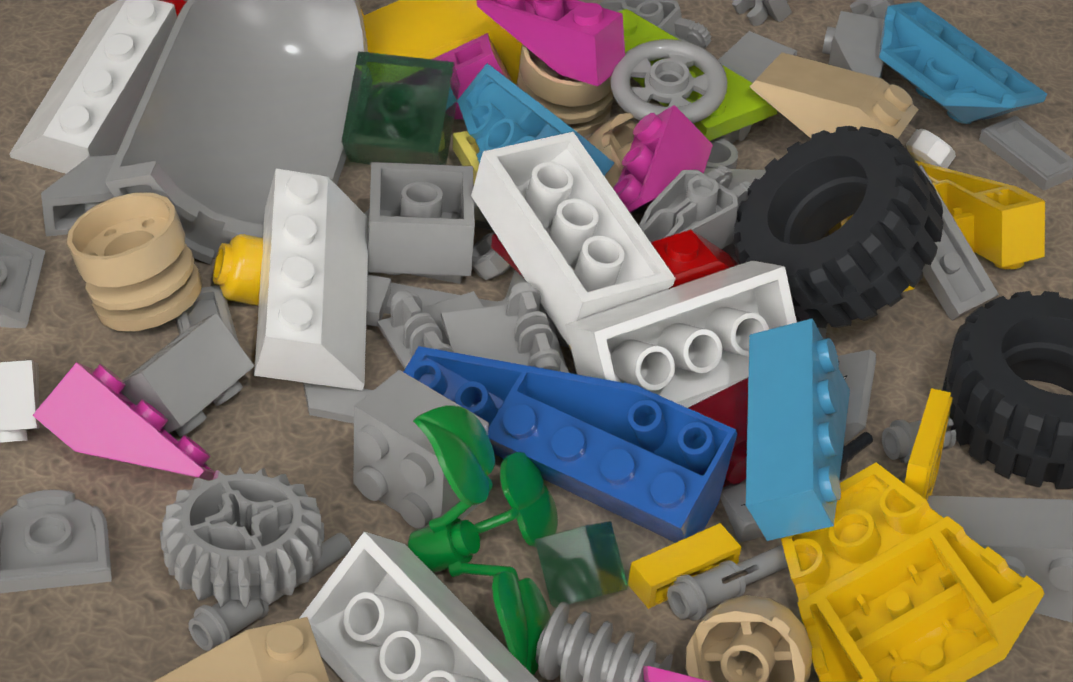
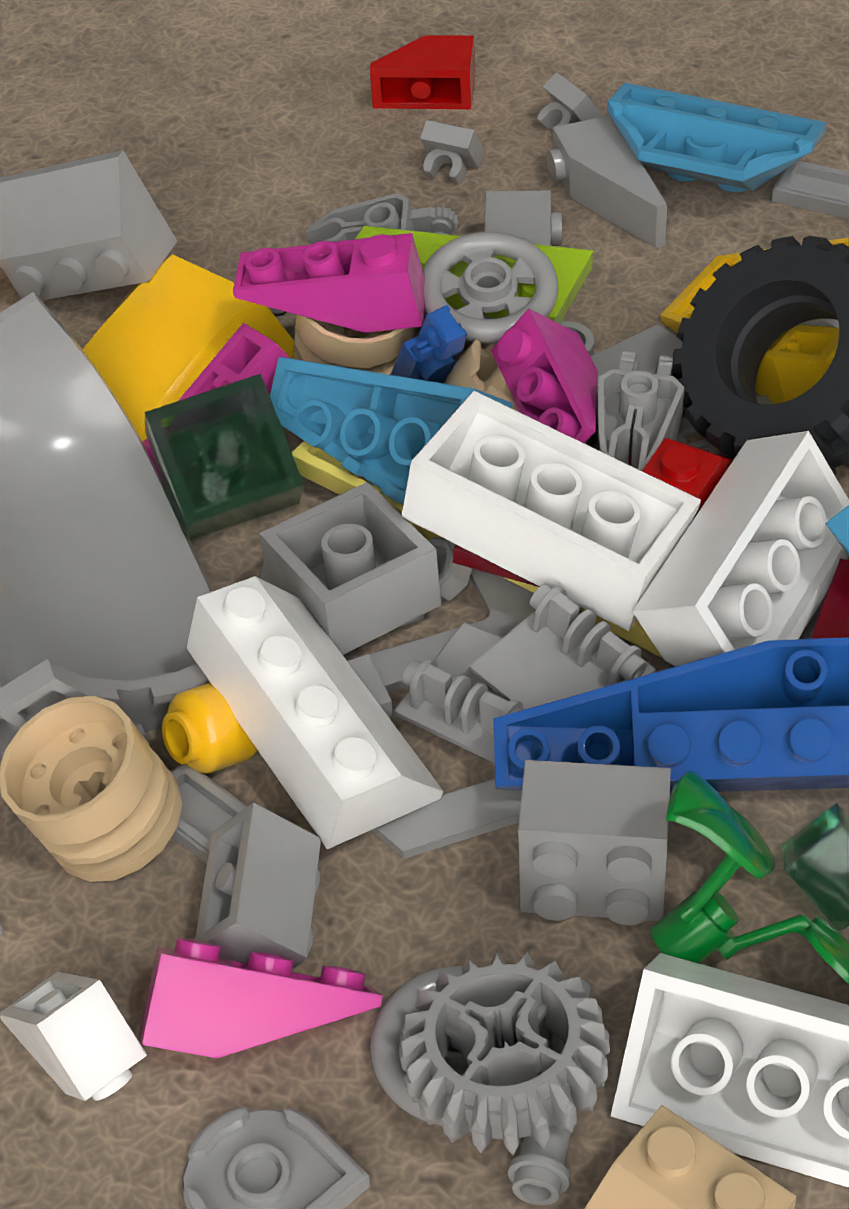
camera: 25 degrees left, 5 degrees up
(593, 106) = (434, 350): none -> blue hinge
(830, 97) = (652, 230): tan slope -> none
(930, 149) = (748, 231): white tile -> none

